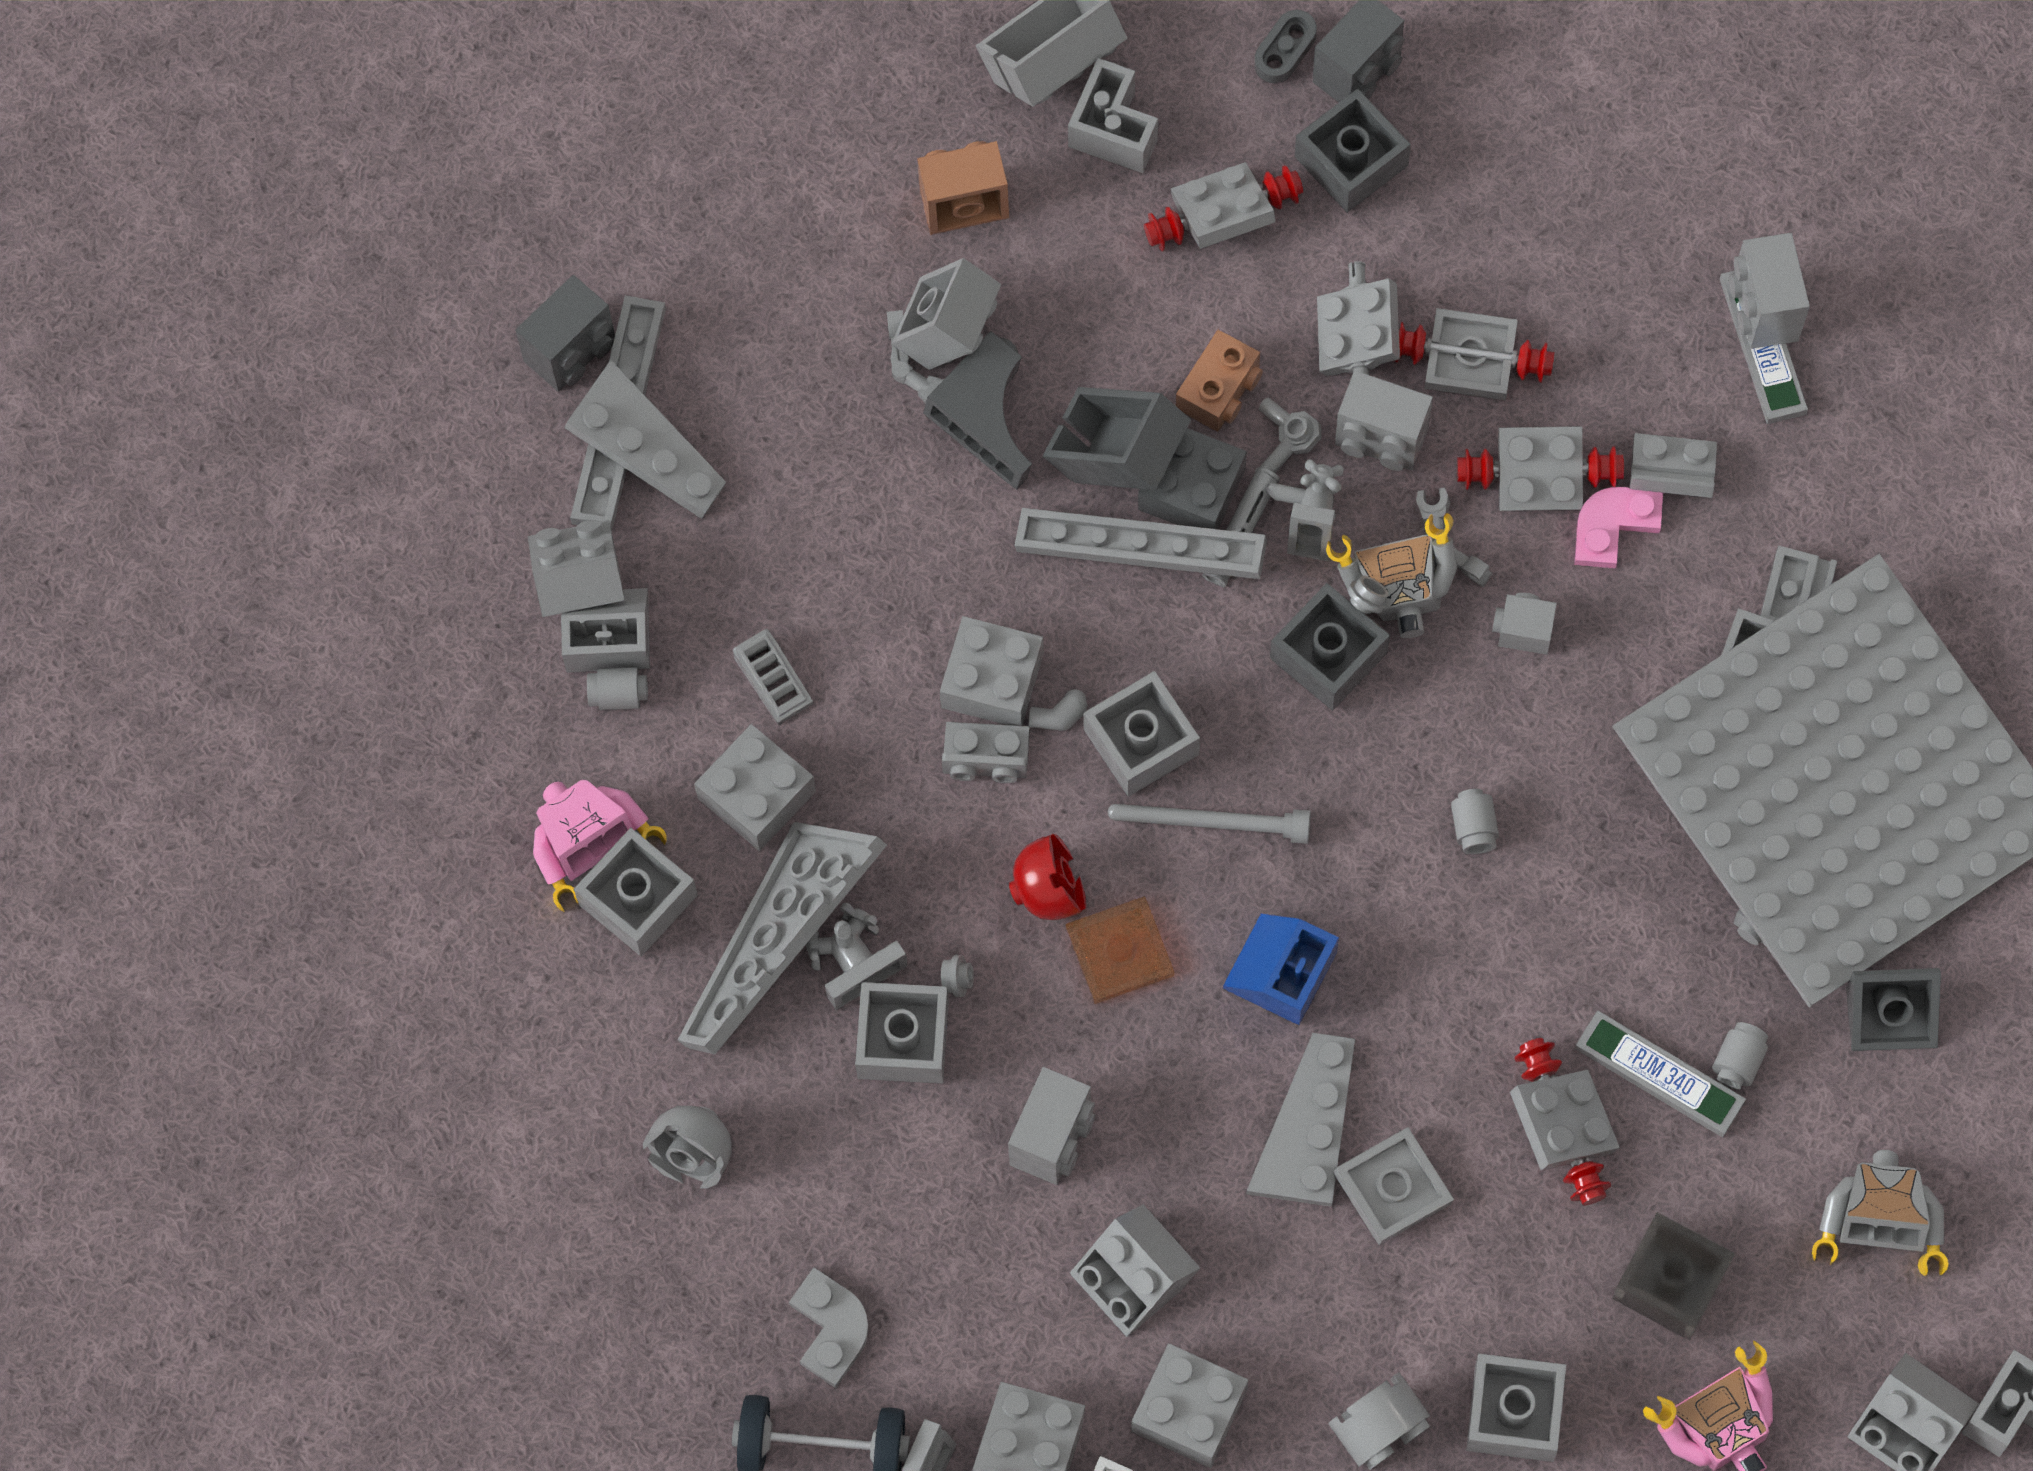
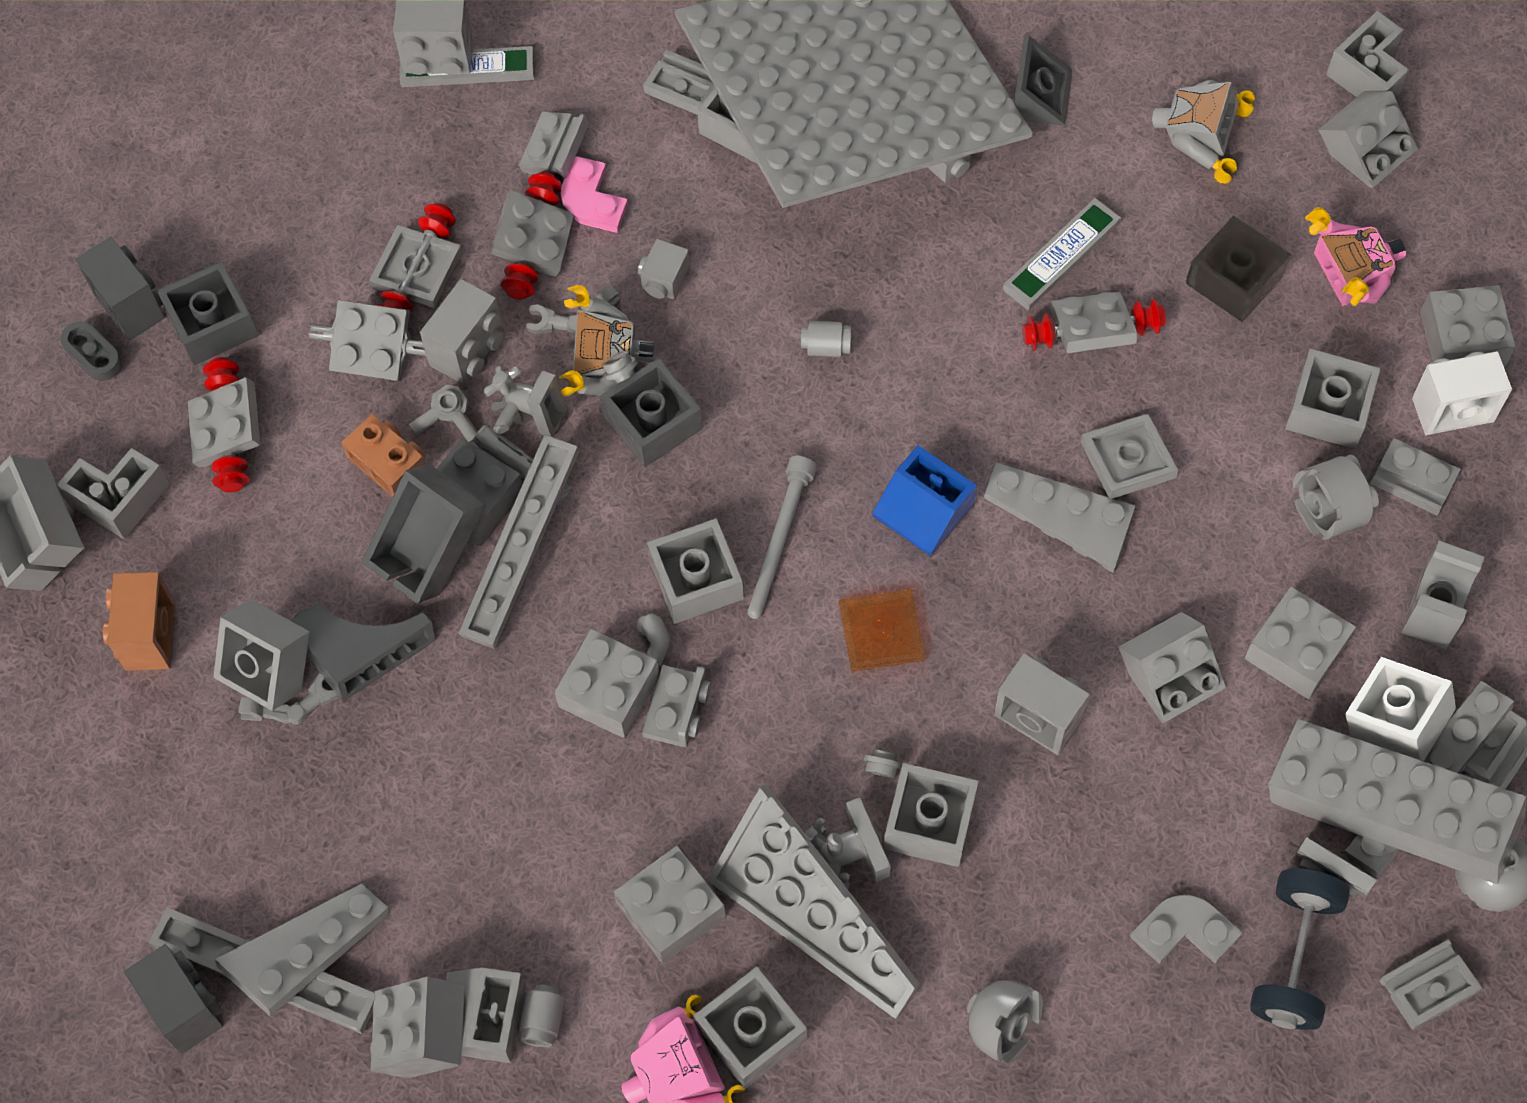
camera: 80 degrees left, 5 degrees down
(756, 645) = (553, 892): light grey slope -> none
(1046, 880) = (812, 672): red cylinder -> none
(1740, 1055) = (1060, 193): light grey brick -> none

